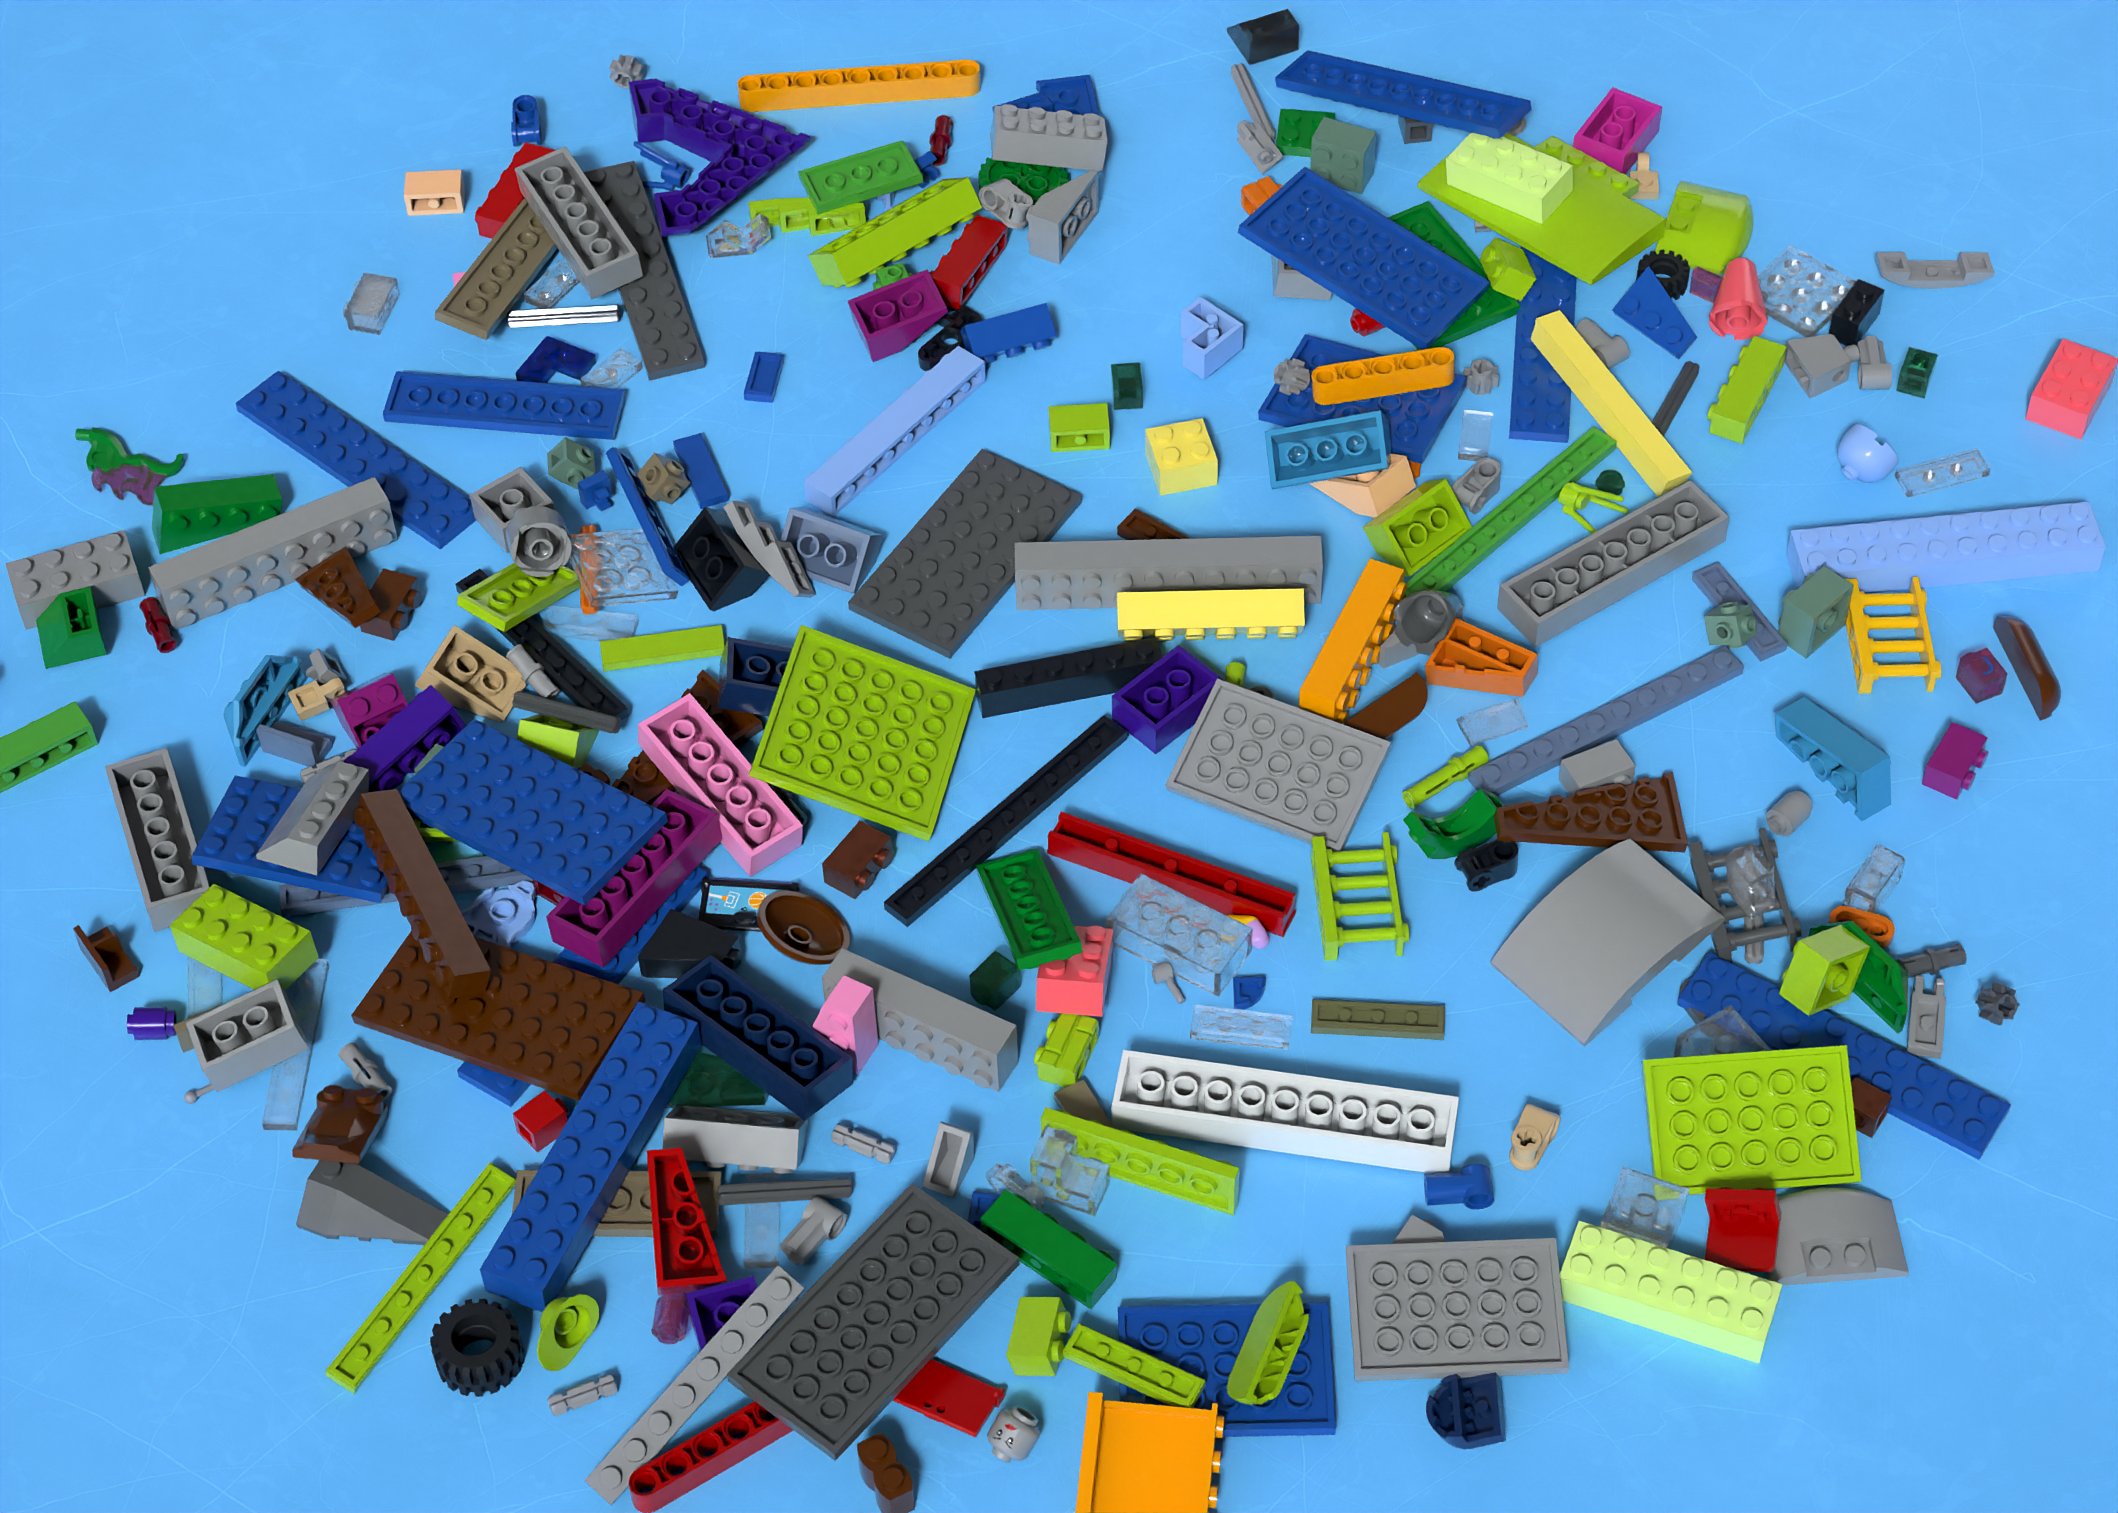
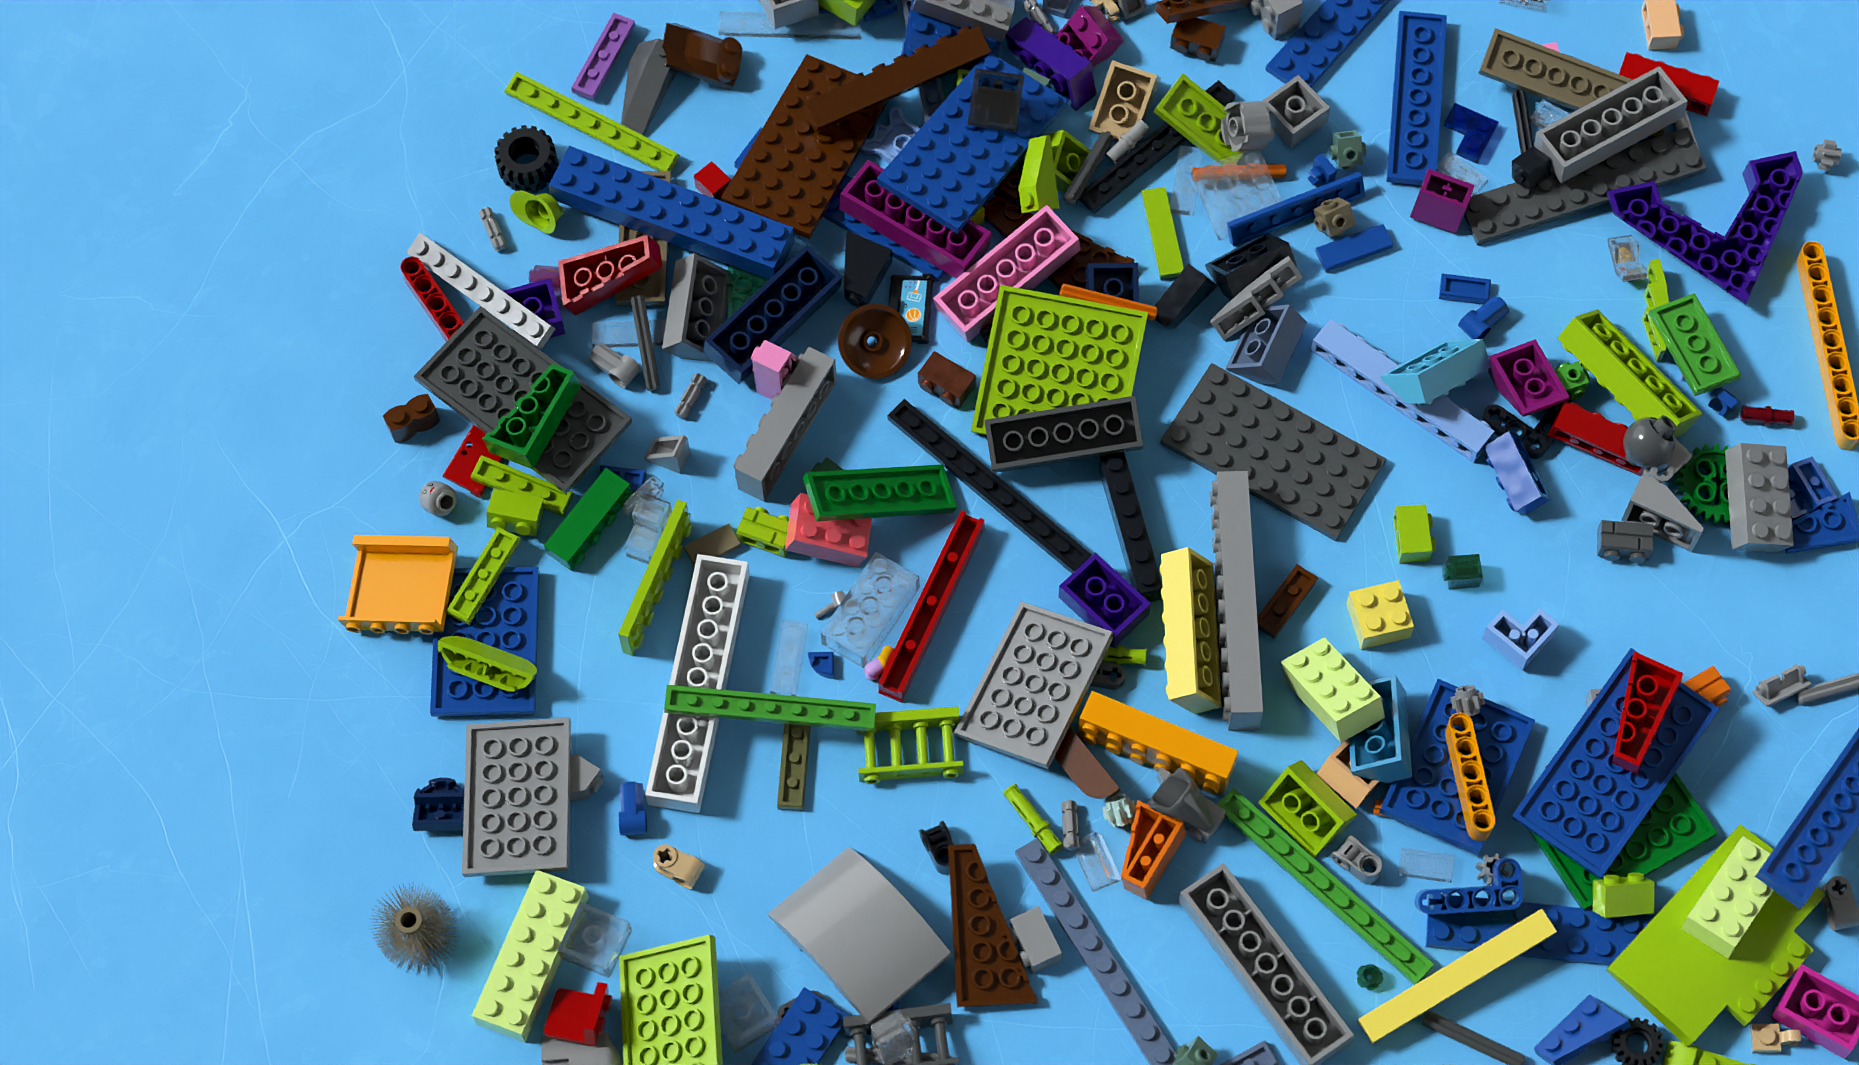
camera: 90 degrees right, 15 degrees up
(315, 1263) = (603, 56): none -> medium lavender plate
(354, 1059) = (760, 69): light grey pin -> none
(482, 768) = (995, 100): none -> clear smoke slope
(525, 121) = (1750, 84): blue piece -> none
(585, 745) = (1038, 177): none -> lime slope
(622, 297) = (1530, 168): none -> black brick
(653, 379) = (1442, 201): none -> magenta slope
(672, 173) = (1701, 203): blue plant -> none
(757, 616) = (1183, 296): none -> black slope
(771, 685) = (1093, 296): none -> orange axle
(810, 362) = (1479, 322): none -> blue piece
(880, 386) = (1438, 371): none -> medium azure slope
(922, 1282) = (534, 418): none -> green wedge
(952, 725) = (1063, 434): none -> dark grey brick
(989, 204) = (1650, 441): none -> dark grey brick
(989, 1340) = (509, 479): none -> lime tile
(1089, 255) = (1625, 541): none -> dark grey brick
(1284, 484) = (1333, 689): none -> yellowish green brick
(1297, 130) = (1809, 730): green plate -> none
(1318, 213) = (1646, 702): none -> red wedge
(1329, 1019) = (770, 708): none -> bright green plate
(1343, 154) = (1762, 754): sand green brick -> none
(1438, 691) = (1119, 810): none -> light aqua gear
(1450, 741) = (1070, 825): none -> light grey axle
(1457, 831) = (971, 819): green arch -> none
(1519, 361) = (1468, 894): none -> blue beam
(1577, 497) = (1348, 945): lime plant -> none
(1609, 350) = (1536, 982): light grey piece -> none
(1650, 1417) = (414, 927): none -> dark tan piece

